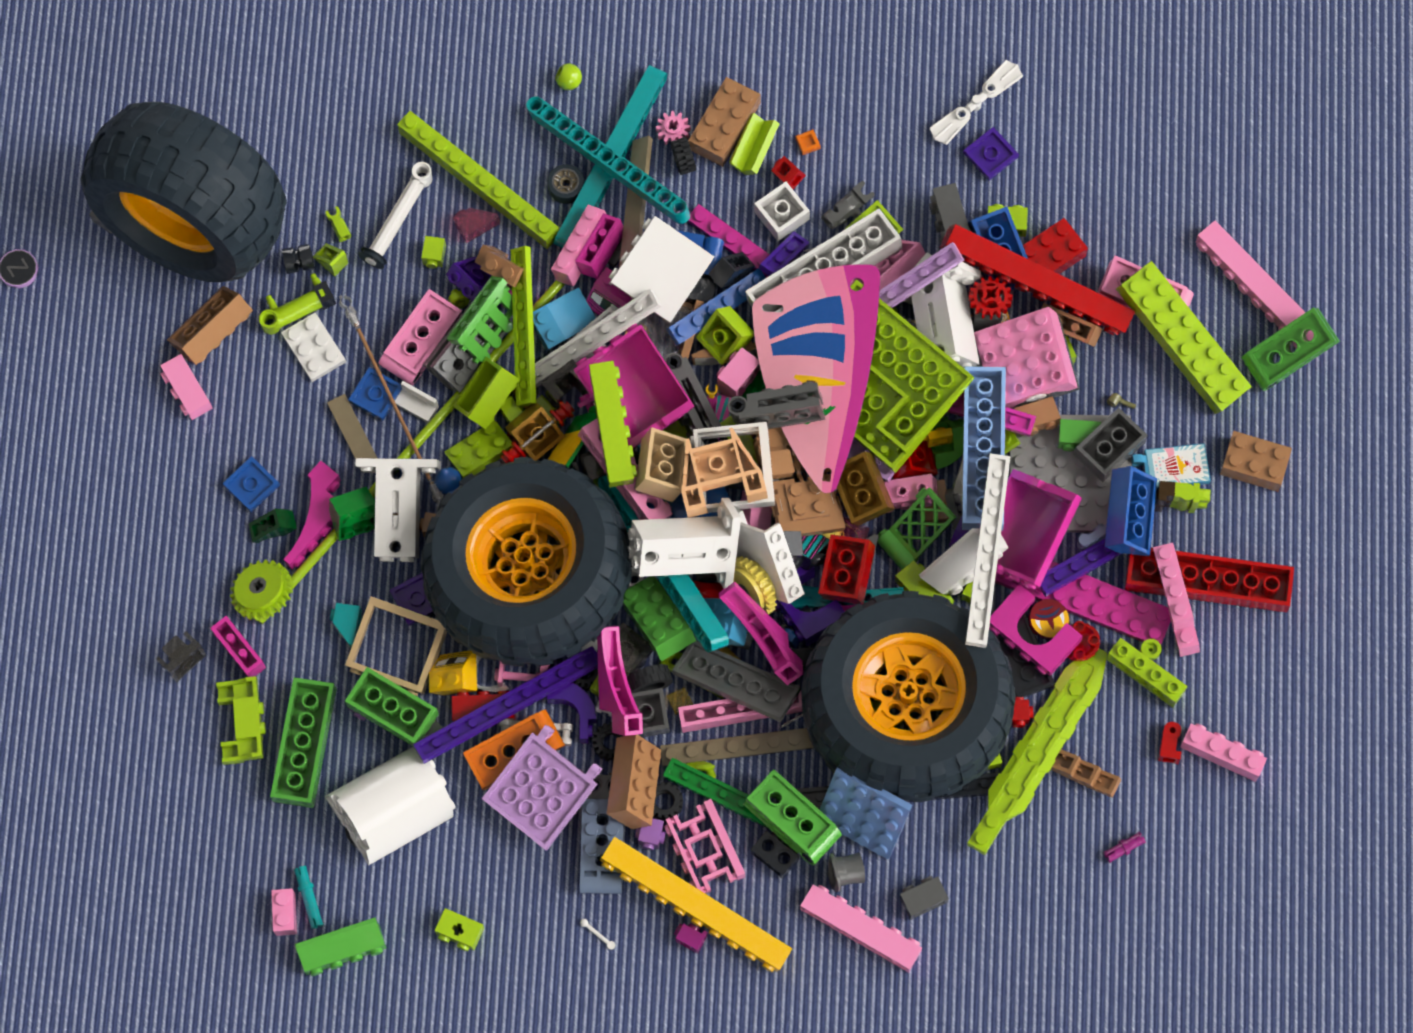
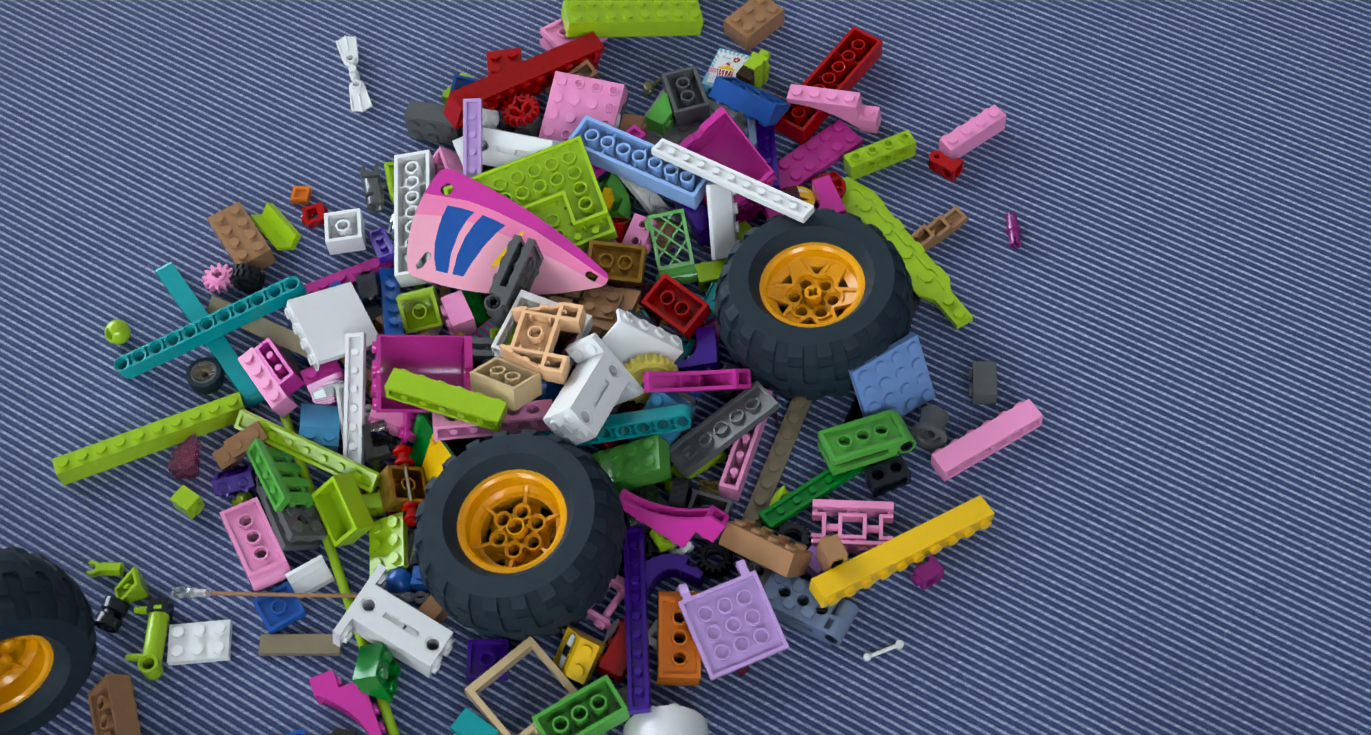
camera: 60 degrees left, 15 degrees down
(374, 254) = (155, 549): white piece -> none
(651, 842) = (830, 552): none -> medium nougat piece
(991, 153) = (400, 81): dark purple plate -> none
(1153, 646) = (861, 141): lime tile -> none

